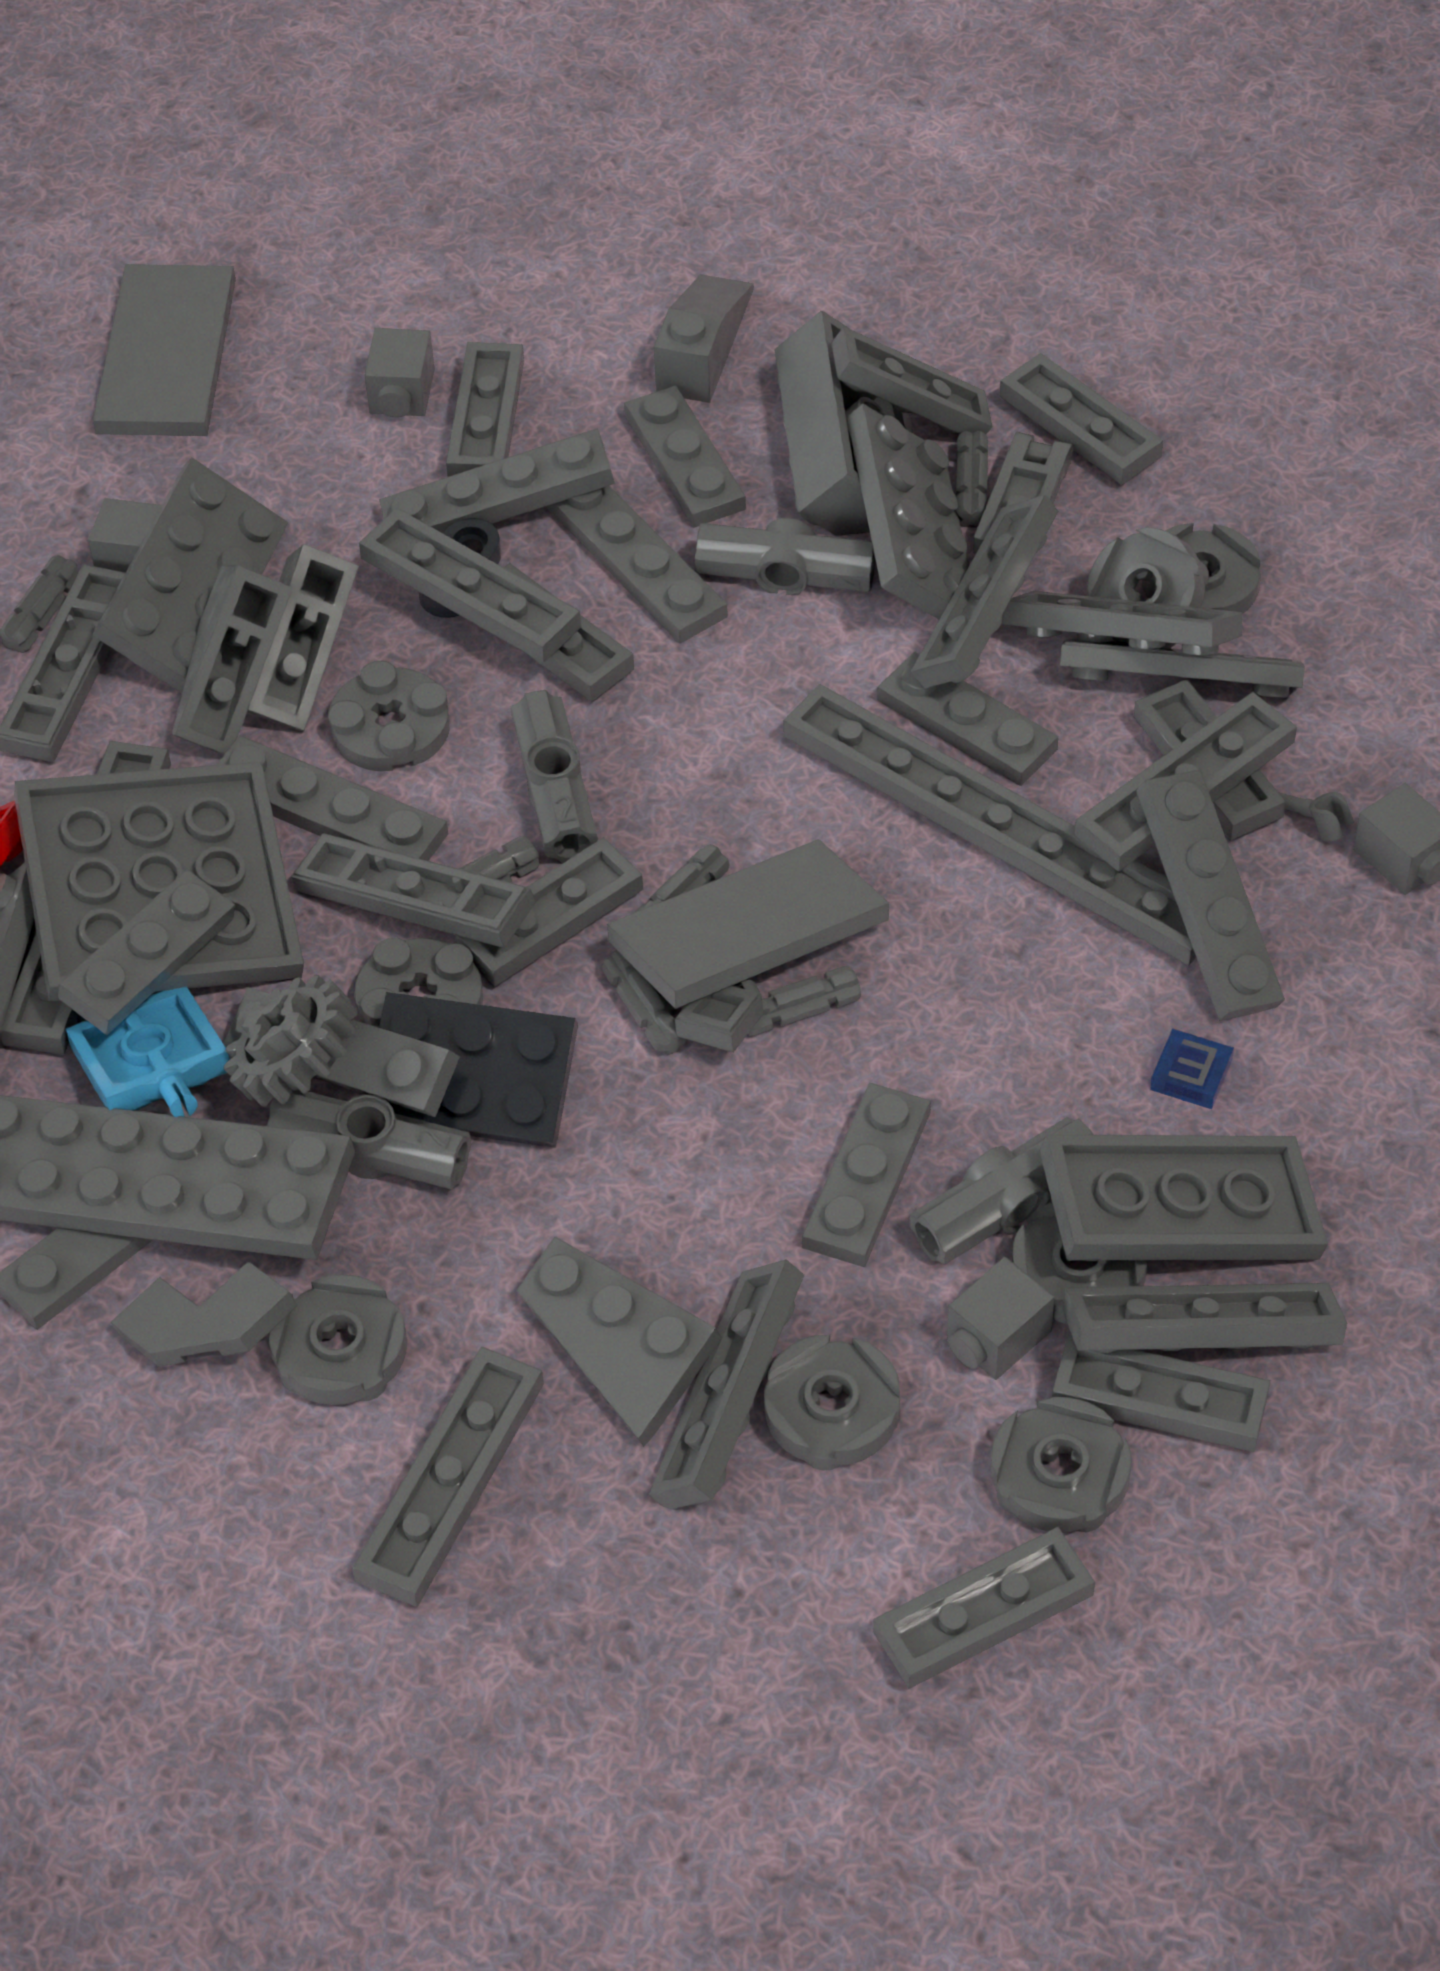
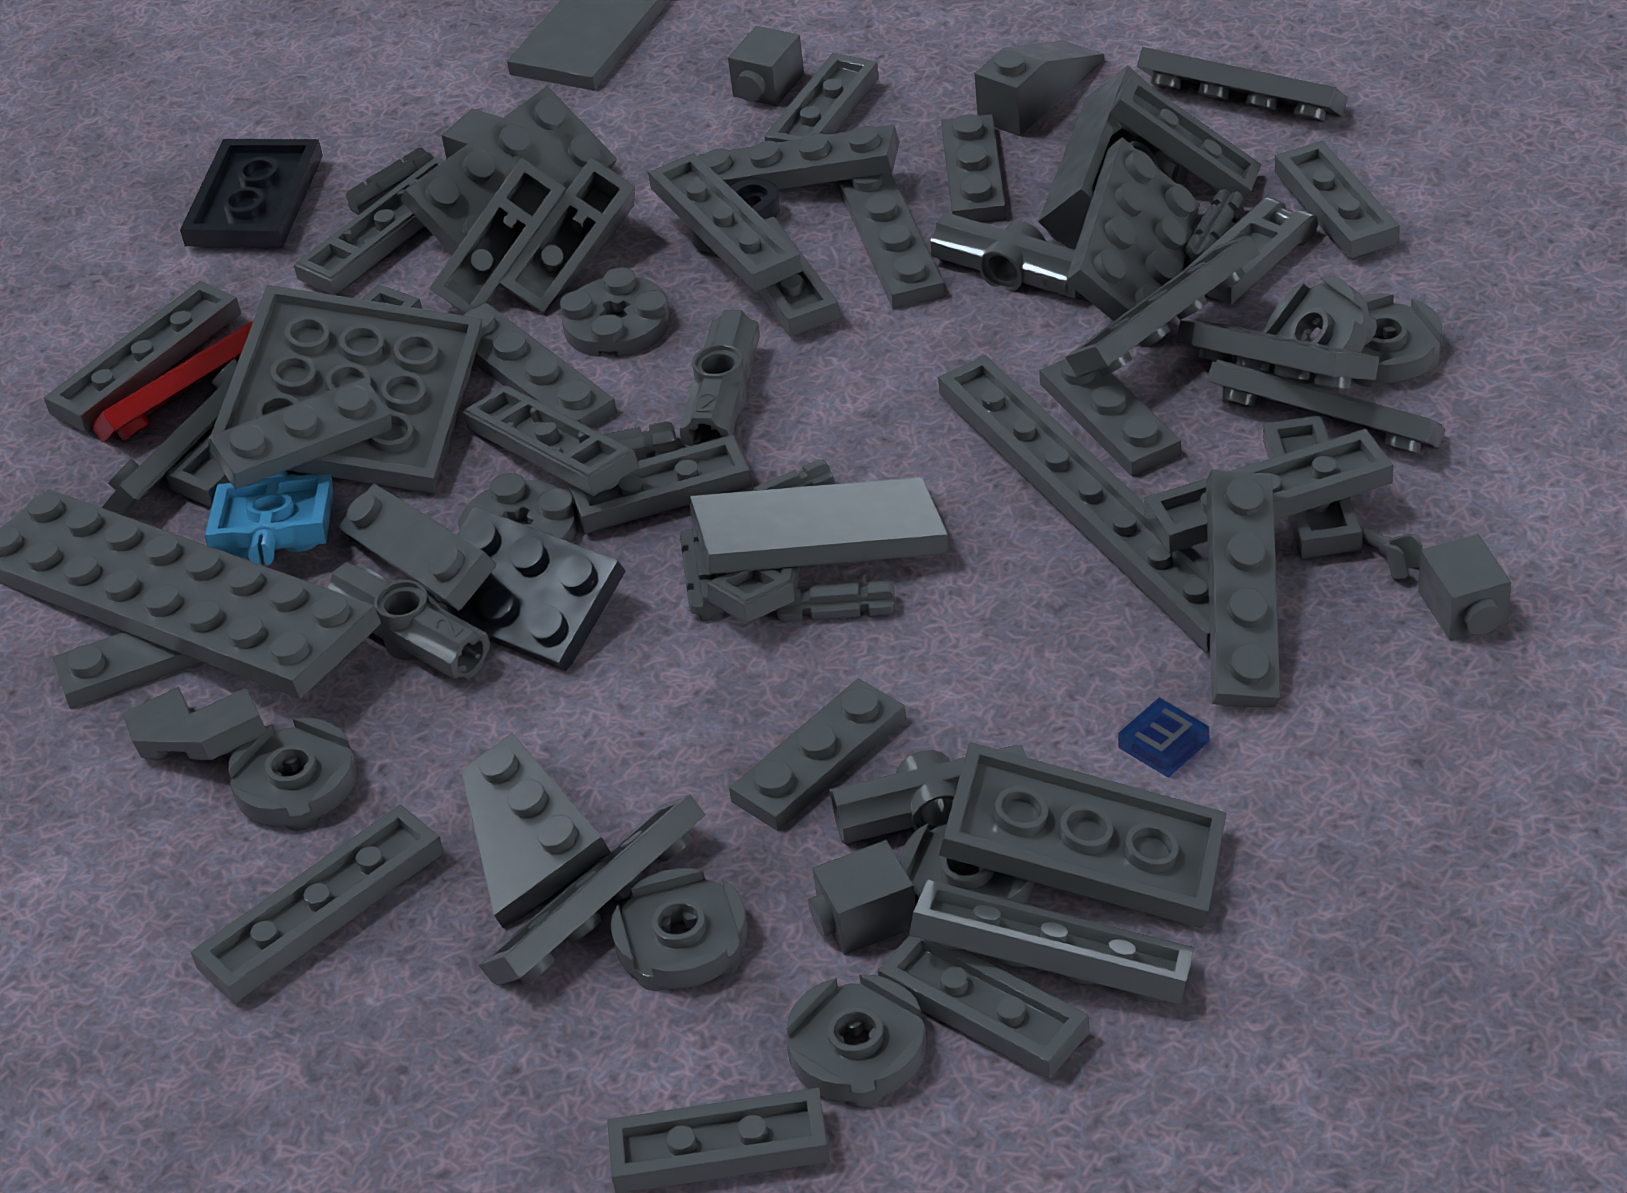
camera: 25 degrees right, 10 degrees down
(290, 1040) = (365, 519): dark grey gear -> none
(947, 301) = (1260, 88): none -> dark grey plate

